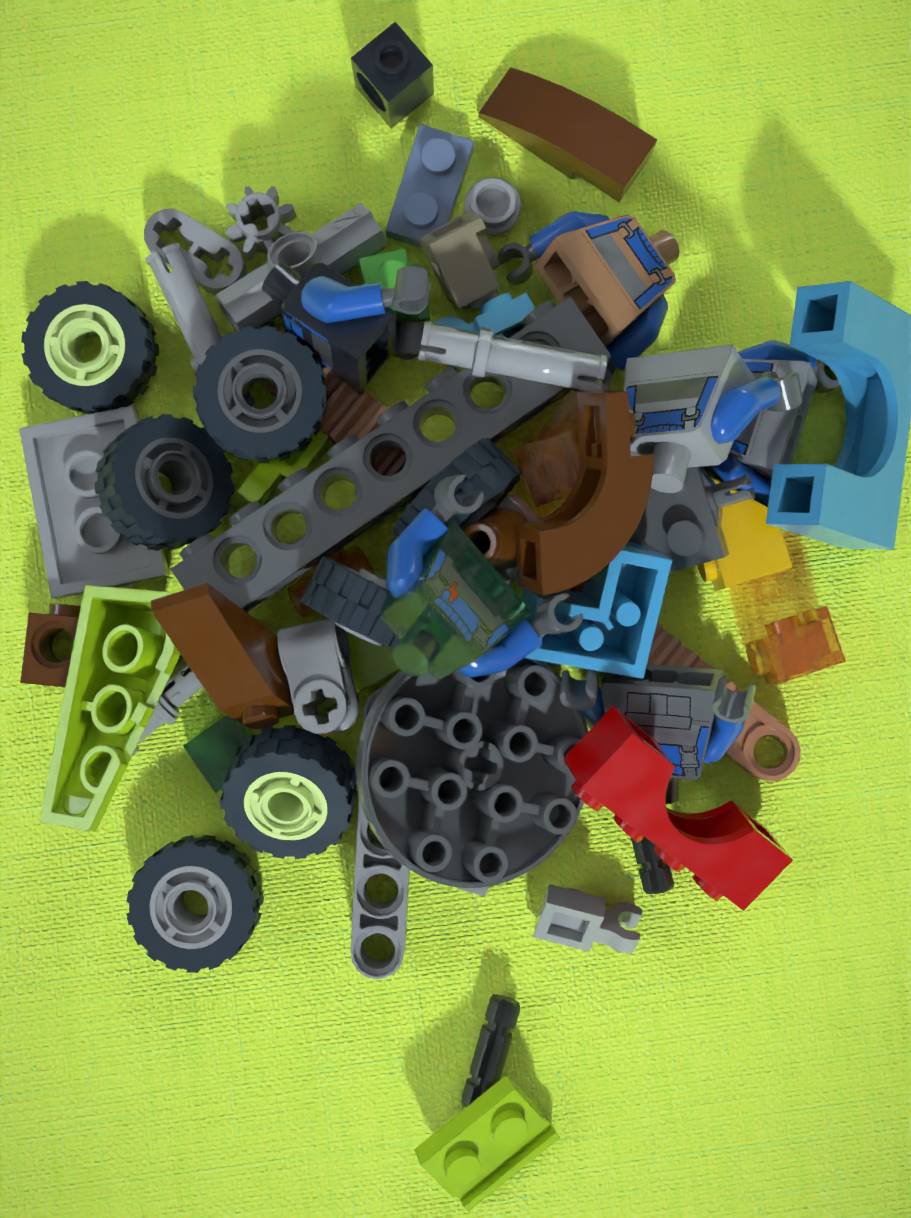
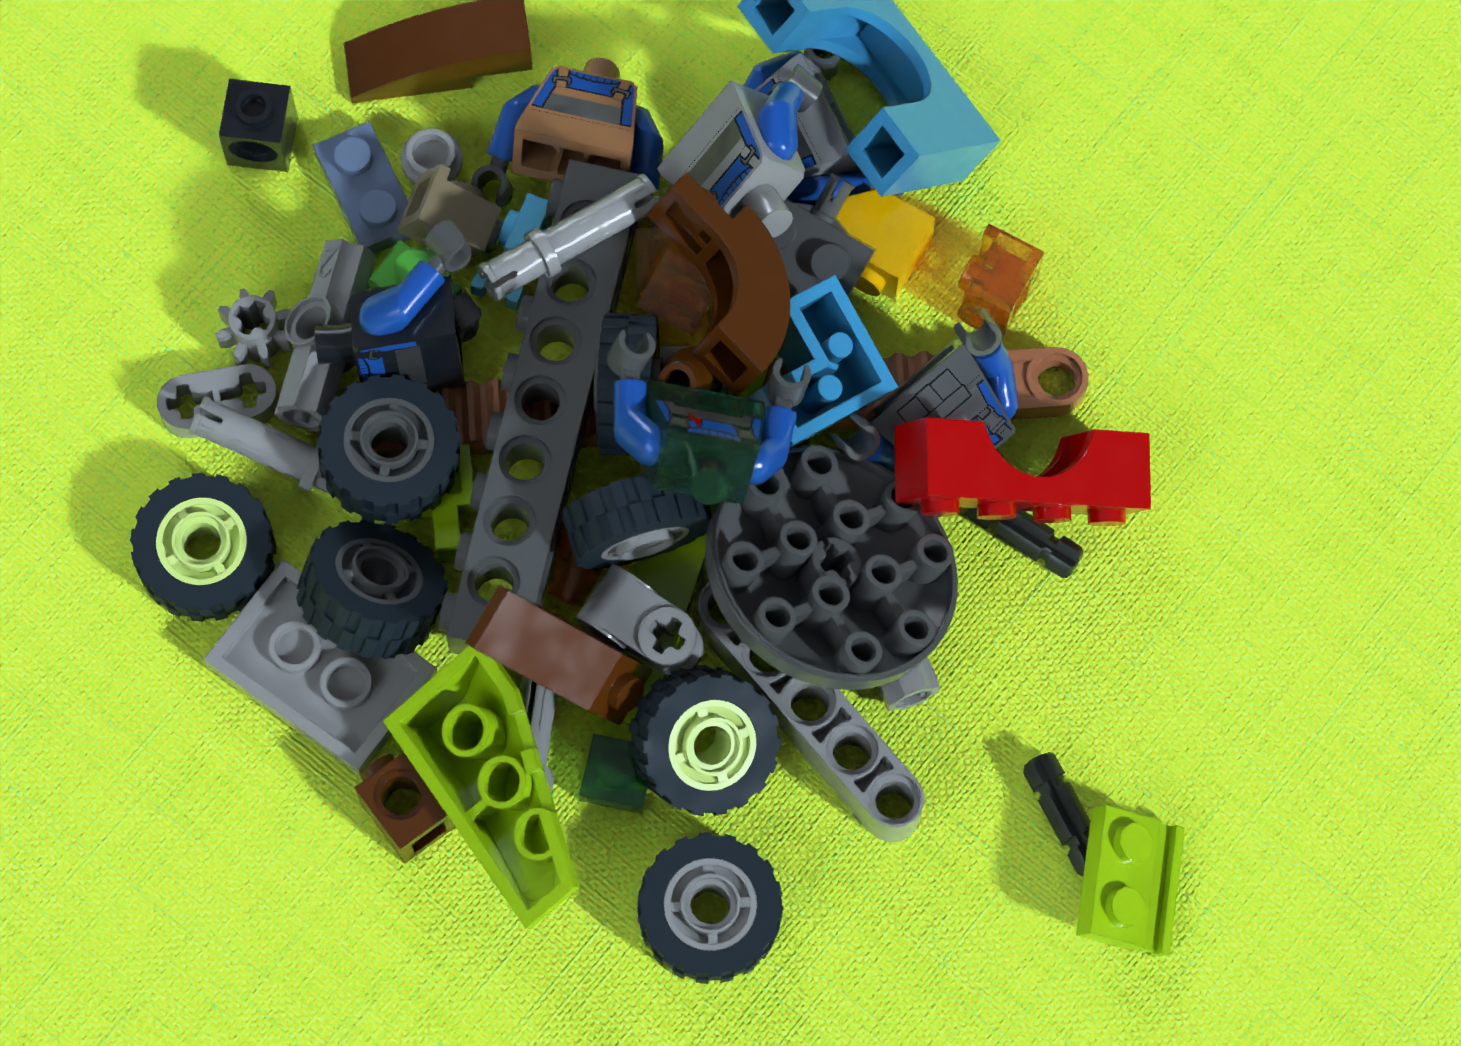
camera: 45 degrees left, 15 degrees down
(581, 918) = (1032, 637): light grey plate -> none

